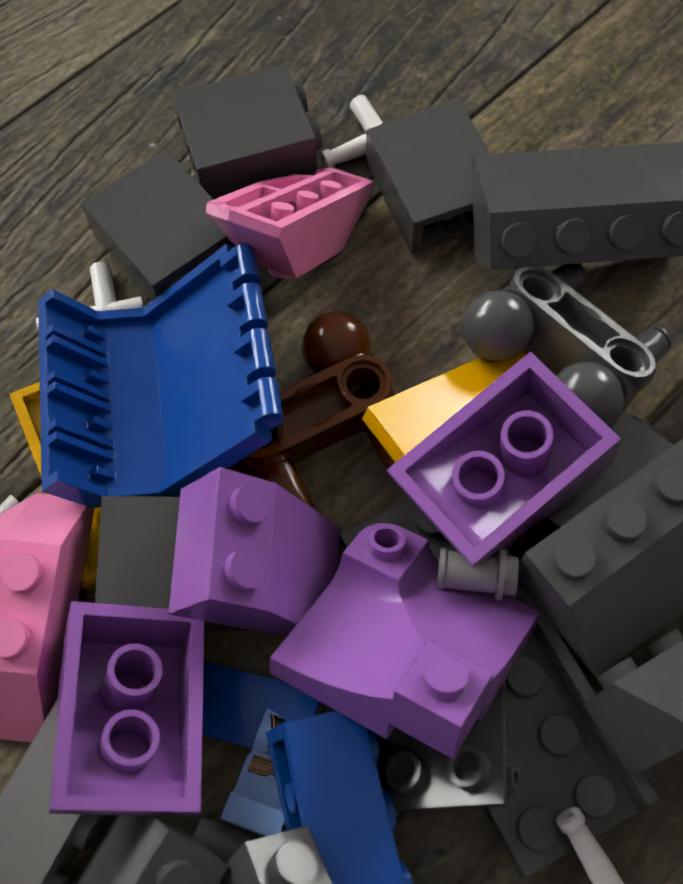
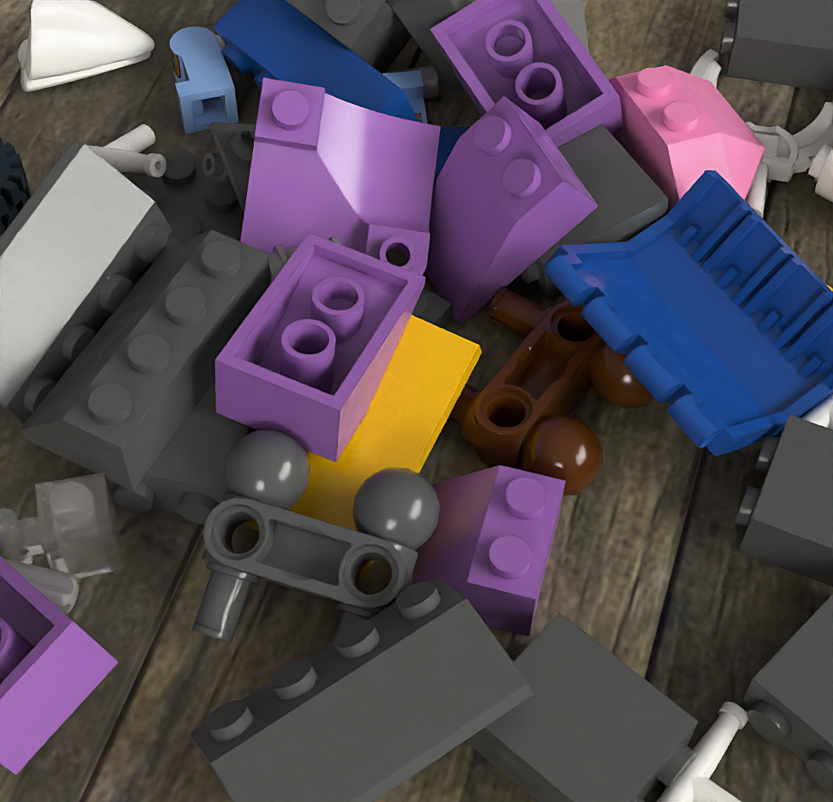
camera: 150 degrees right, 10 degrees down
(293, 218) = (708, 548): bright pink wedge -> none
(420, 305) = (494, 542): none -> medium lavender slope

